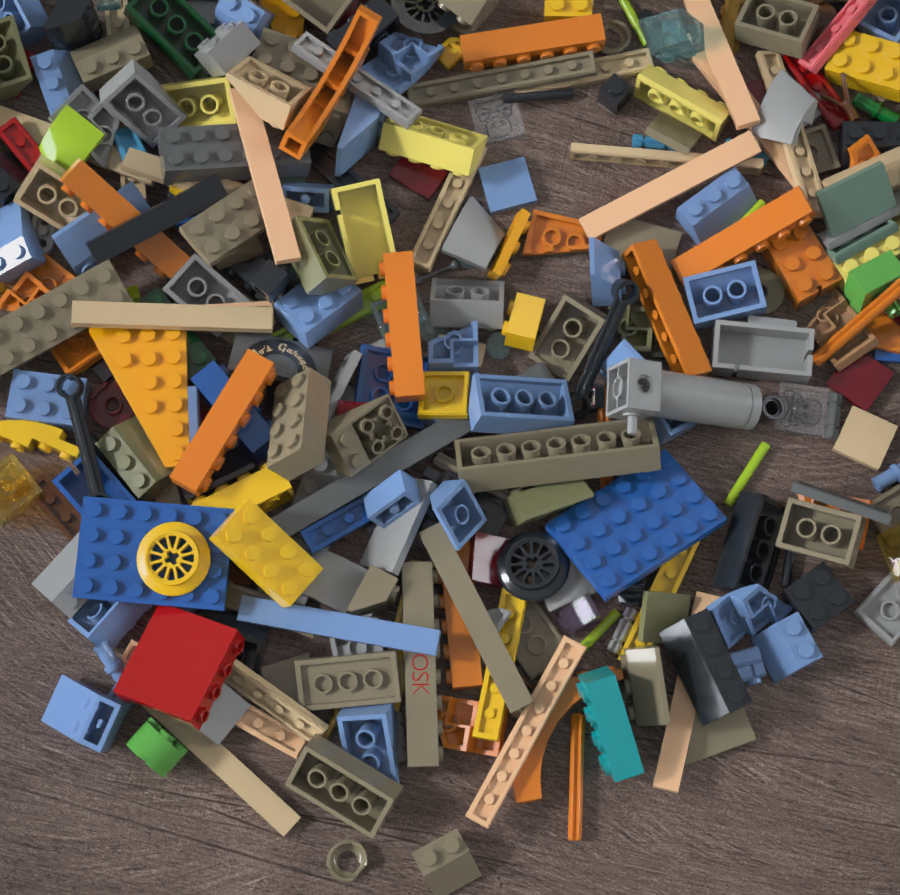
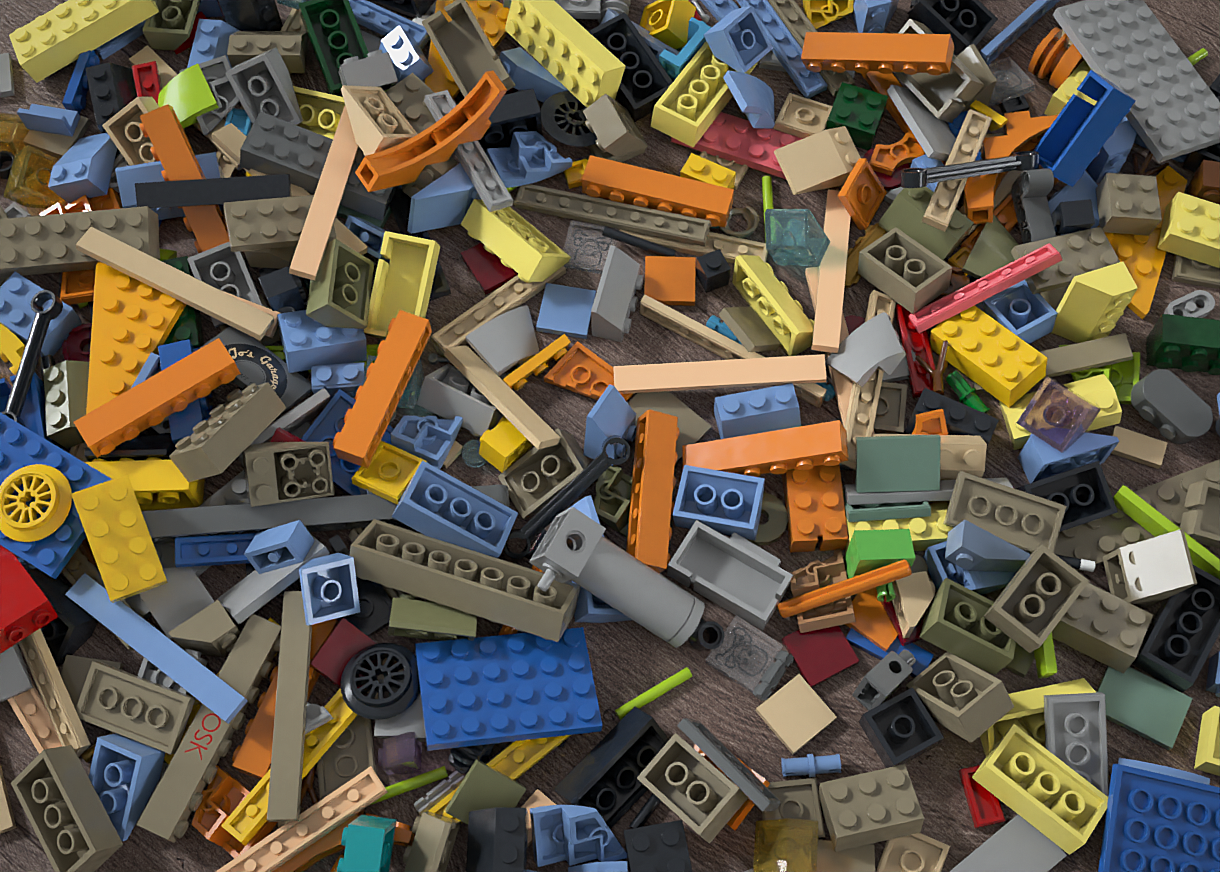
camera: 25 degrees right, 10 degrees down
(352, 335) = (338, 376): none -> medium blue brick
(500, 287) = (502, 397): none -> tan tile
(546, 154) = (616, 296): none -> light grey slope
(581, 118) = (670, 279): none -> orange tile

